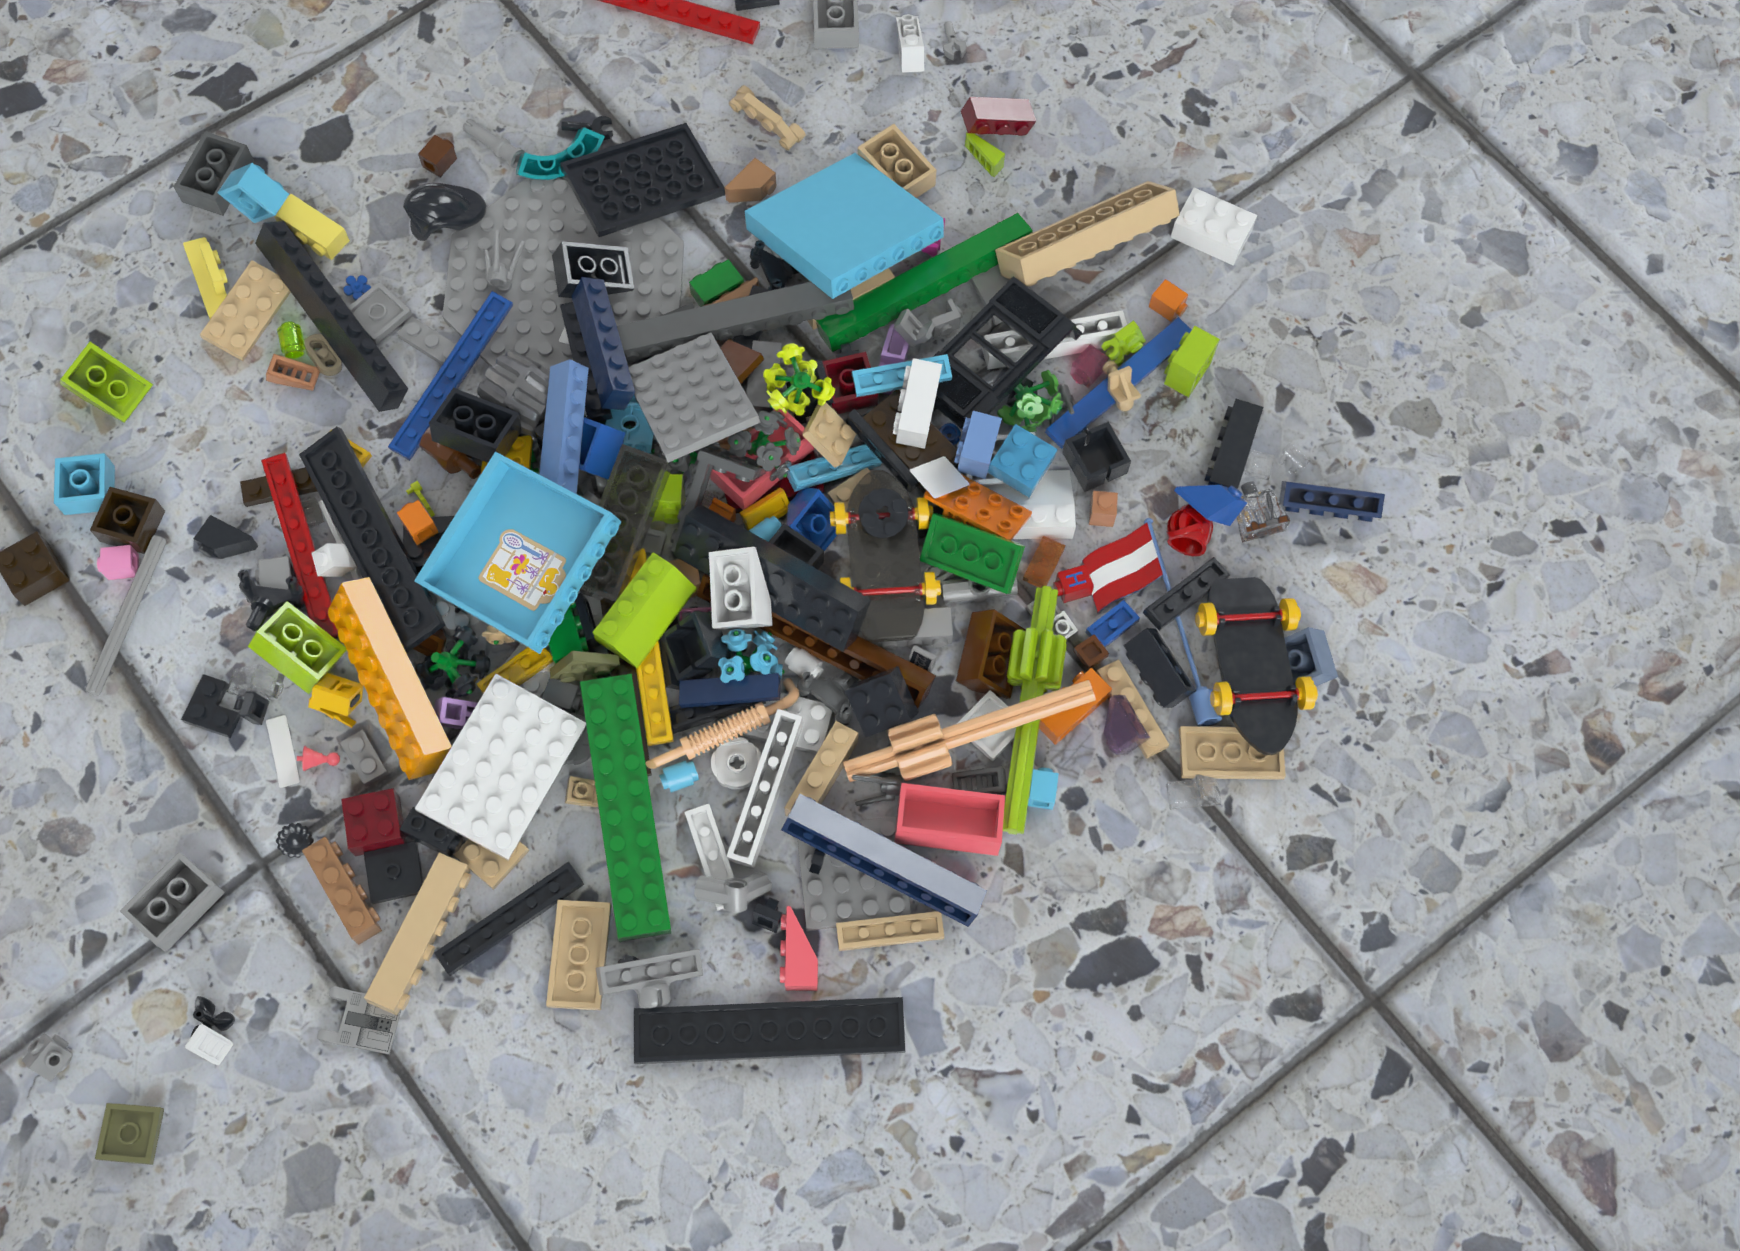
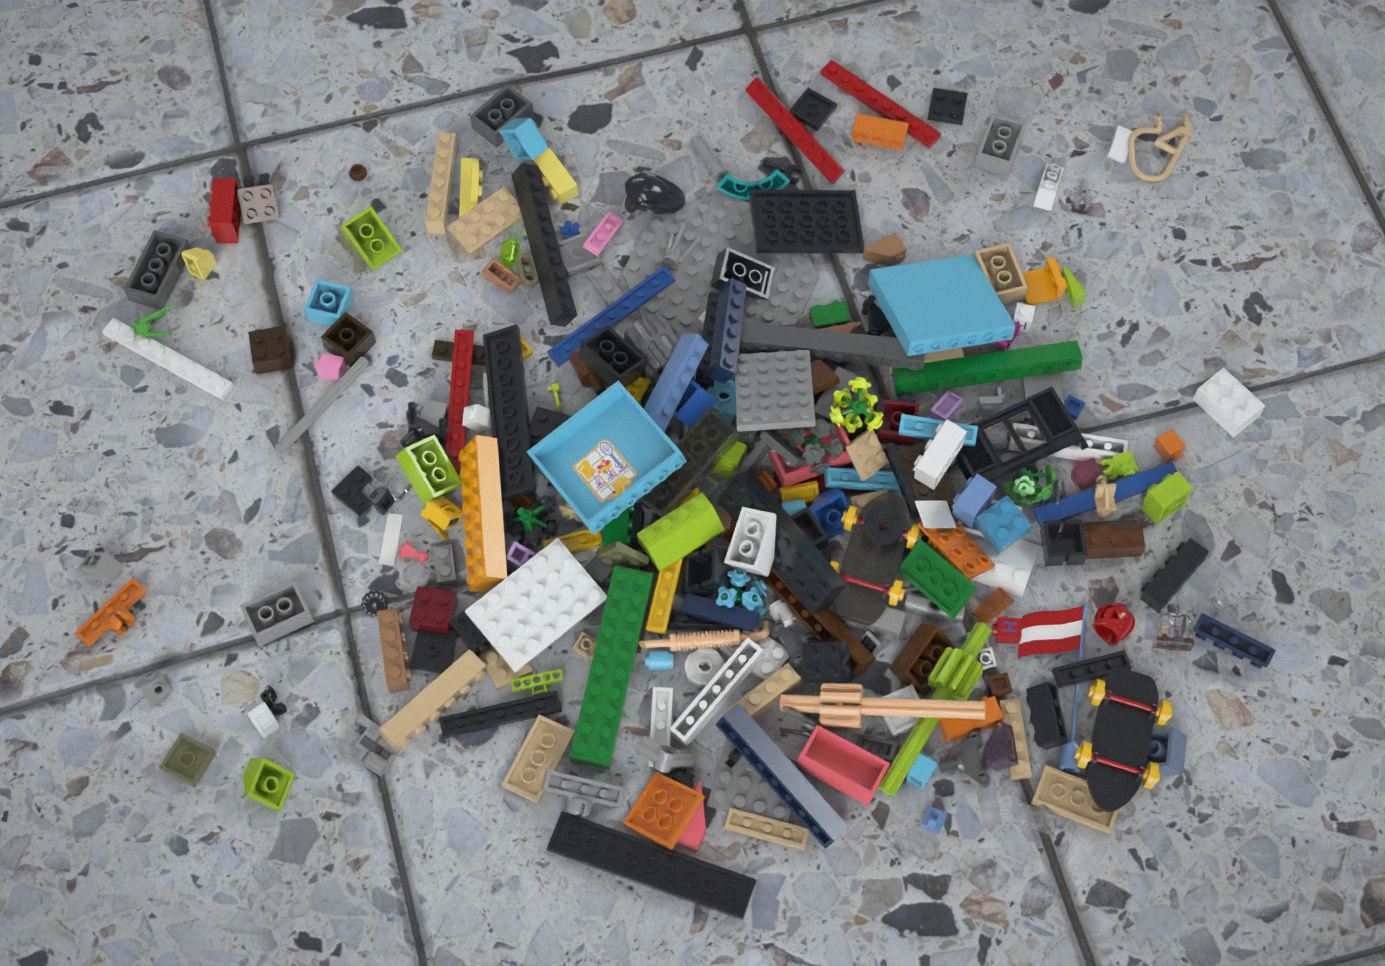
camera: 25 degrees right, 5 degrees down
(56, 305) = (358, 172): none -> reddish brown plate
(170, 283) = (441, 183): none -> tan brick
(223, 539) = (407, 376): black slope -> none
(245, 1122) = (267, 782): none -> lime slope
(400, 277) = (603, 233): none -> bright pink plate
(417, 521) = (545, 411): orange brick -> none
(437, 155) = (664, 155): reddish brown brick -> none
(549, 857) = (530, 685): none -> lime piece
(584, 74) = (795, 130): none -> red plate
(595, 42) = (813, 109): none -> black plate
(687, 43) = (879, 131): none -> orange brick
(759, 958) = (663, 810): none -> orange plate
(770, 120) = (918, 210): tan plate -> none
(912, 330) = (961, 399): light grey bracket -> none
(944, 204) = (1024, 316): none -> white brick
(950, 428) = (958, 482): blue plate -> none
(952, 158) = (1045, 283): none -> light orange bracket
(998, 116) = (1093, 263): brick -> none
(1044, 290) = (1074, 406): none -> blue plate
(1078, 841) = (933, 819): none -> medium blue tile
(1088, 233) = (1125, 373): tan brick -> none
(1091, 757) = (968, 761): none -> dark grey axle
(1103, 508) = (1053, 583): nougat brick -> none
(1113, 623) = (1026, 671): blue plate -> none
(1151, 430) = (1114, 539): none -> reddish brown slope
(1214, 501) = (1139, 608): blue slope -> none

